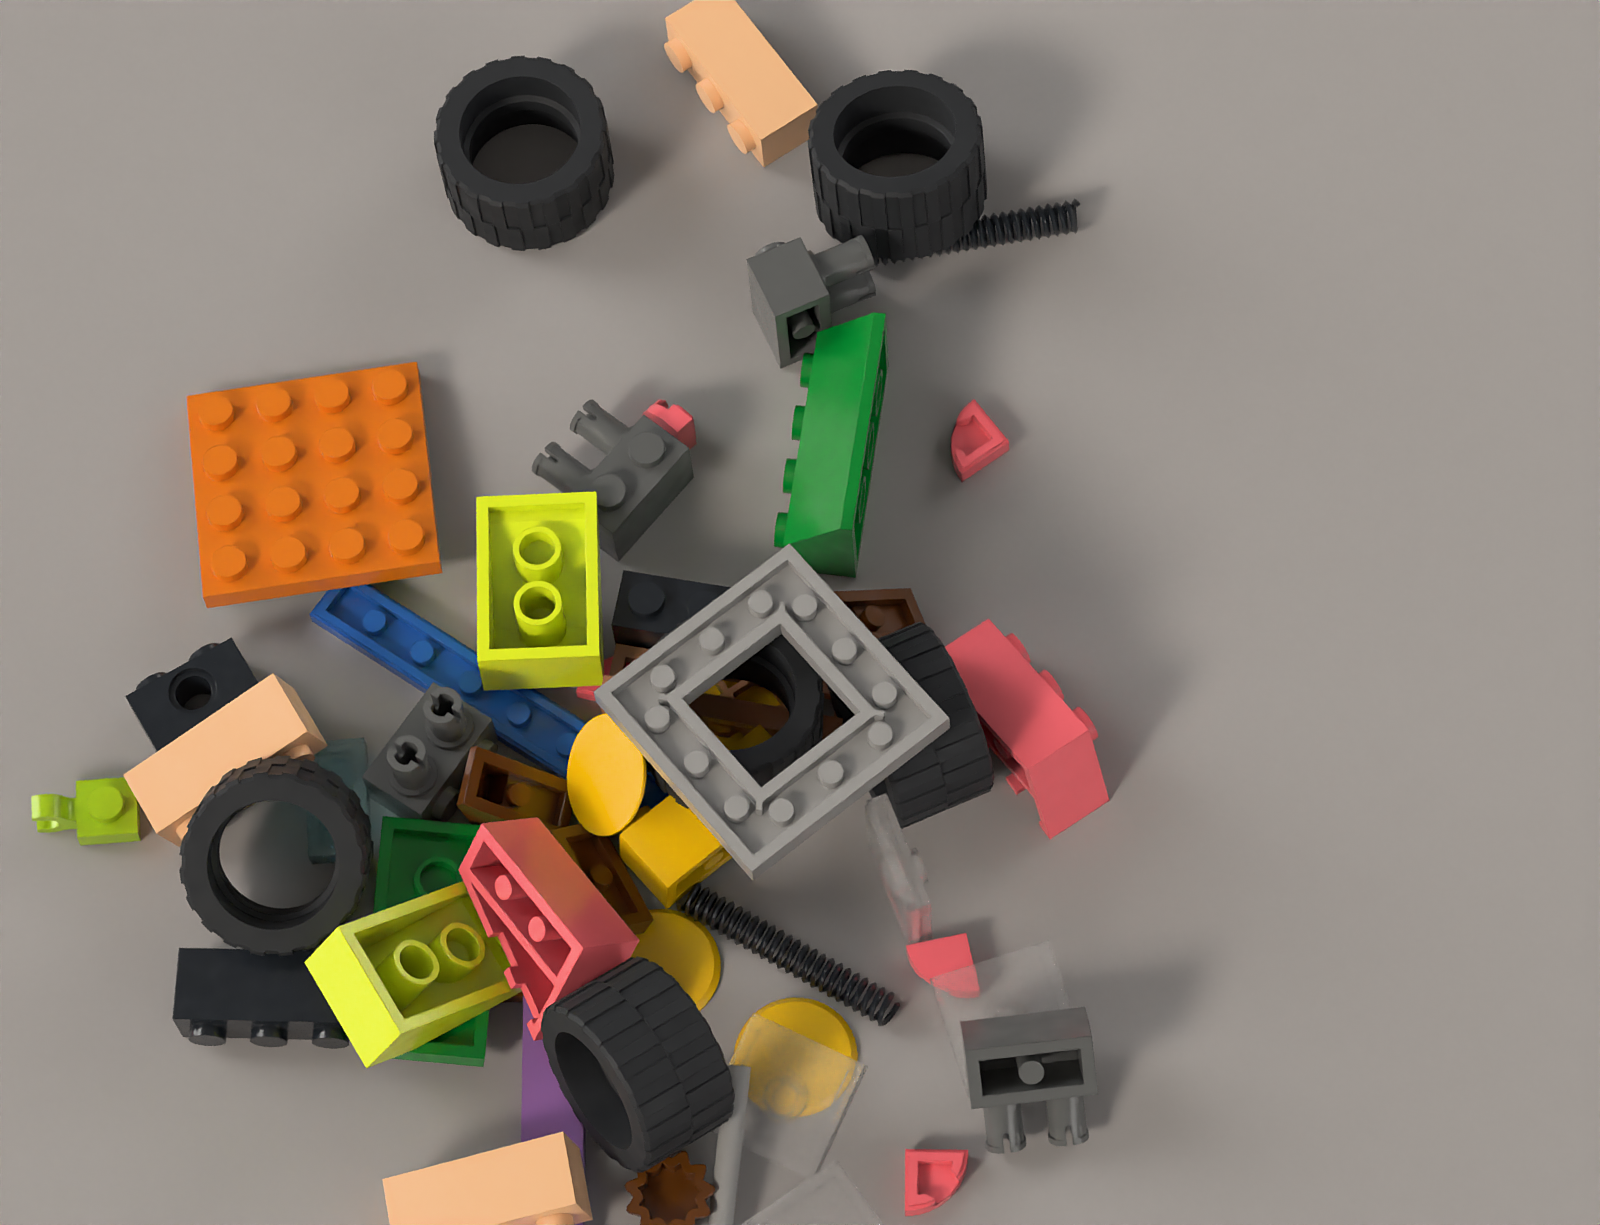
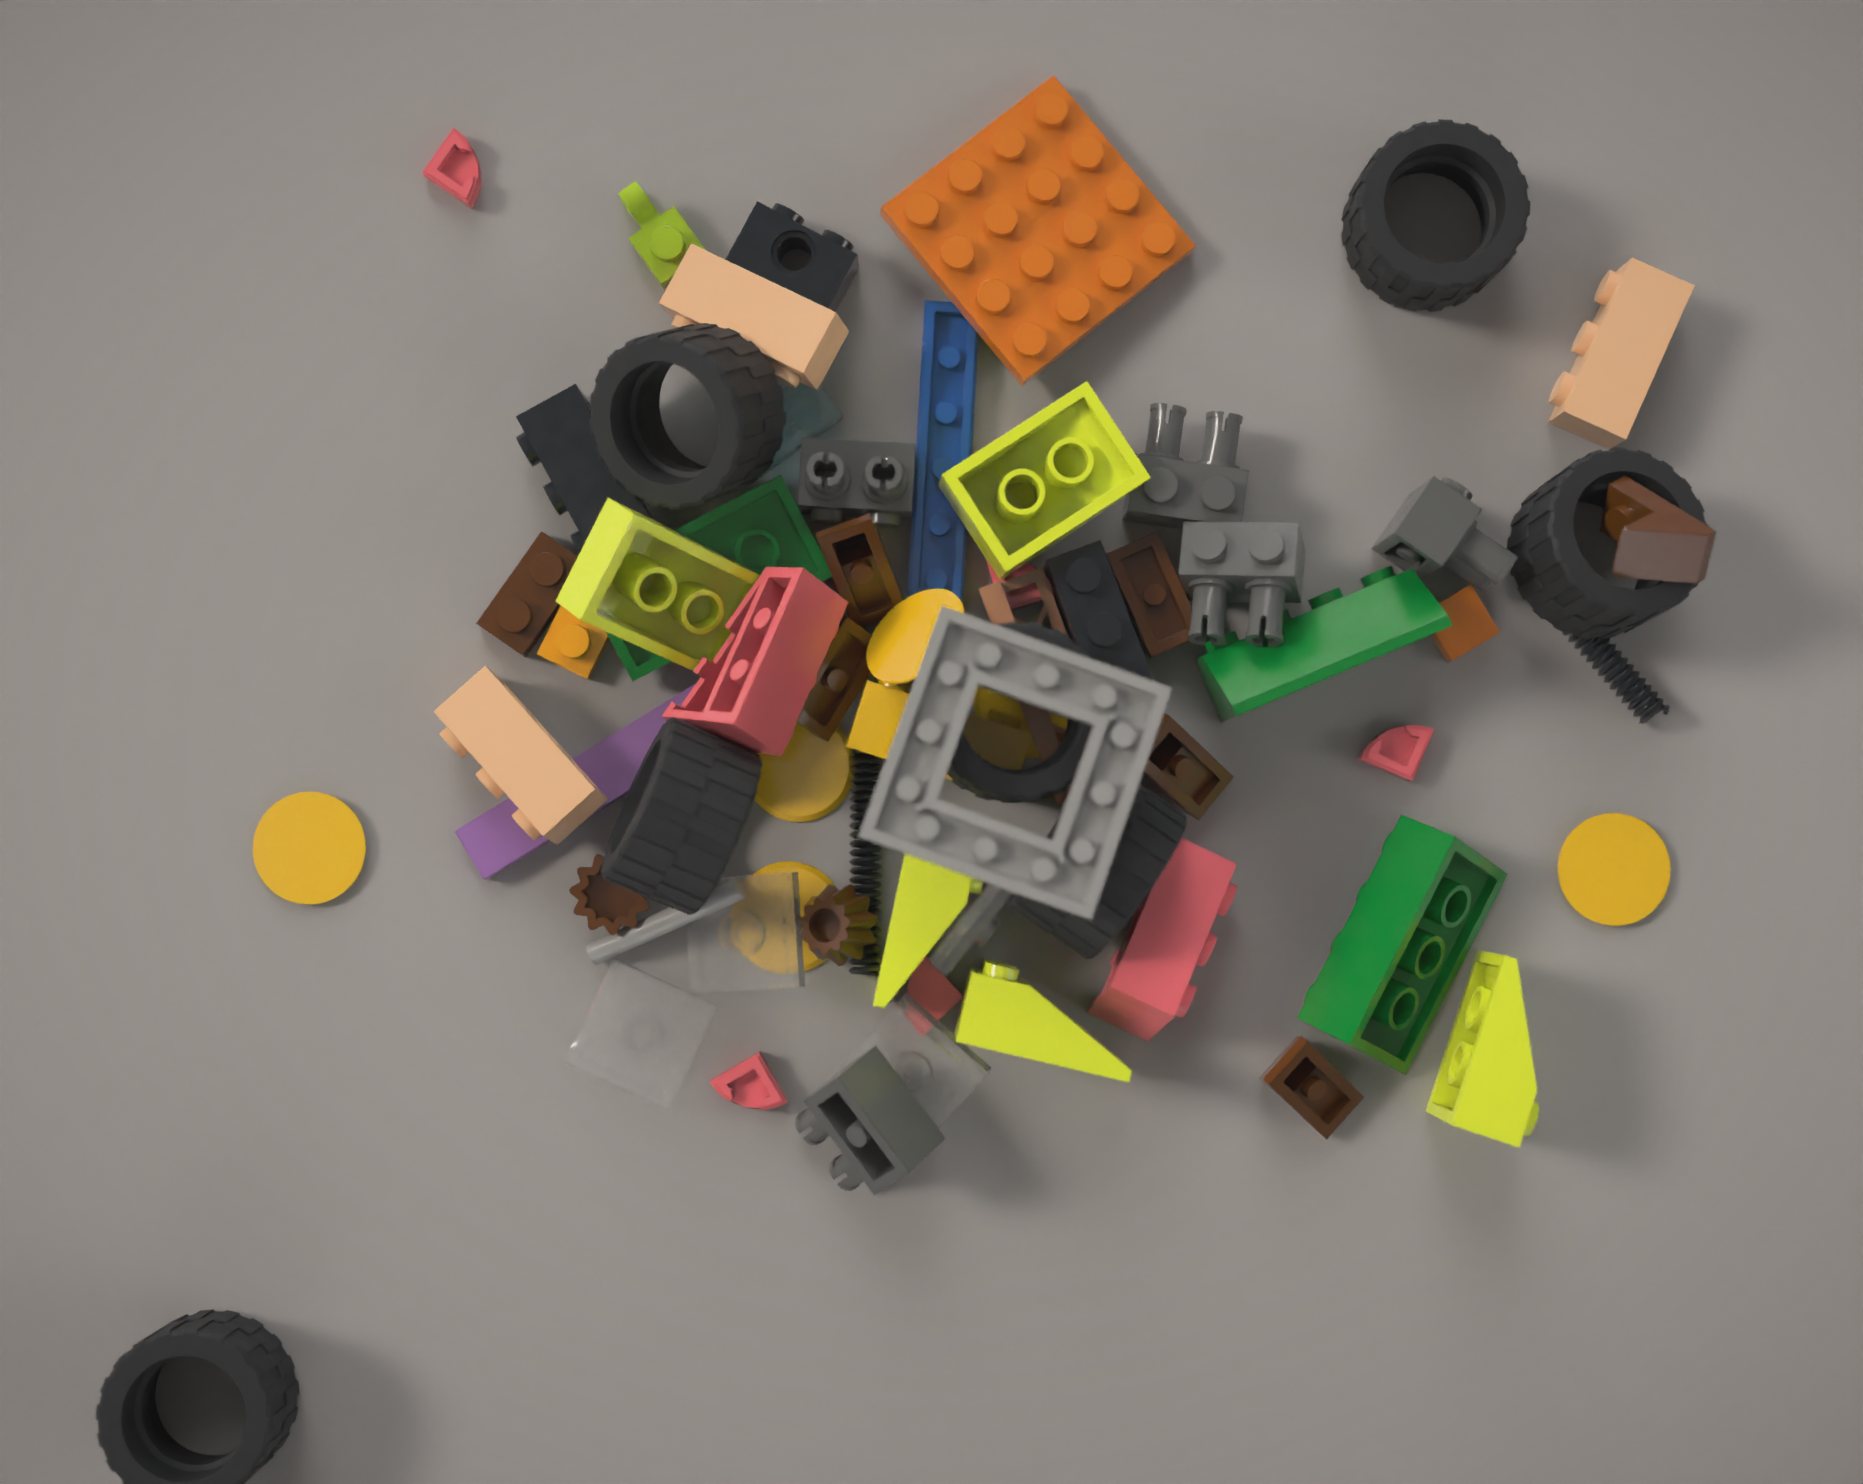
camera: 50 degrees right, 20 degrees up
(343, 1115) = (529, 595): none -> reddish brown plate
(410, 1099) = (573, 644): none -> light orange plate
(674, 421) = (1263, 491): coral tile -> none
(701, 556) = (1152, 593): none -> reddish brown plate
(726, 467) = (1241, 564): none -> dark grey brick
(830, 1003) = (838, 924): none -> reddish brown piece
(846, 896) = (922, 911): none -> neon yellow slope
(904, 326) = (1470, 624): none -> orange tile
(910, 114) = (1654, 536): none -> reddish brown slope
(1026, 871) = (1018, 1020): none -> neon yellow slope
(1150, 527) = (1403, 943): none -> green slope
(1193, 323) = (1614, 869): none -> yellow piece
(1231, 670) = (1312, 1086): none -> reddish brown slope
(1293, 501) = (1488, 1062): none -> neon yellow slope

